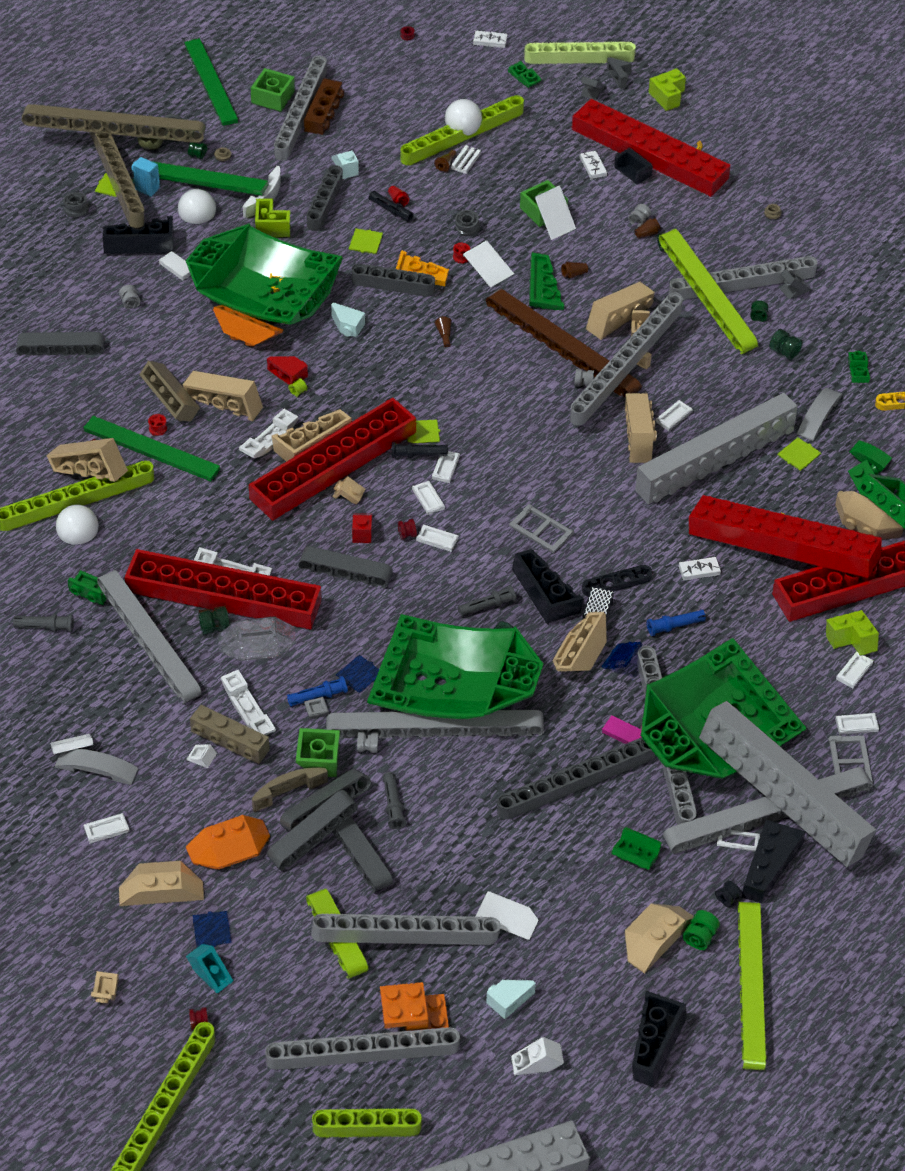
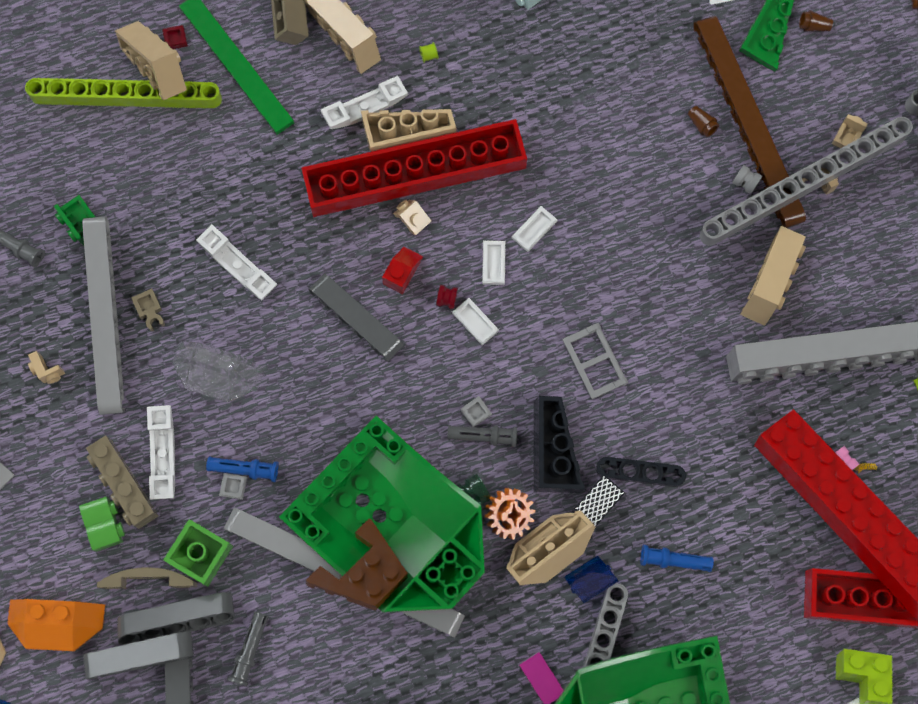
camera: 25 degrees right, 25 degrees up
(77, 524) = (108, 131): white piece -> none
(121, 691) = (39, 368): none -> tan bracket
(154, 421) = (255, 31): red wheel -> none
(178, 621) = (148, 307): none -> dark tan plate
(202, 755) = (85, 489): white slope -> none
(207, 617) = (179, 324): clear green wheel -> none
(217, 586) = (211, 289): red brick -> none
(229, 767) = (102, 524): none -> bright green brick
(287, 368) = (430, 24): red slope -> none
(359, 673) = (301, 462): clear blue piece -> none
(367, 742) = (260, 561): light grey wheel -> none
(418, 450) = (505, 192): black pin -> none
(426, 432) = (537, 172): lime piece -> none
(443, 326) = (628, 39): reddish brown cone -> none
(461, 703) = (371, 578): none -> reddish brown wing
(472, 591) = (476, 411): none -> light grey tile
(530, 356) = (704, 122): none -> reddish brown cone
(539, 637) = (508, 511): none -> gear
(617, 308) = (837, 101): tan wedge -> none
(674, 415) = (823, 274): white tile -> none
(699, 568) = (741, 498): white tile -> none

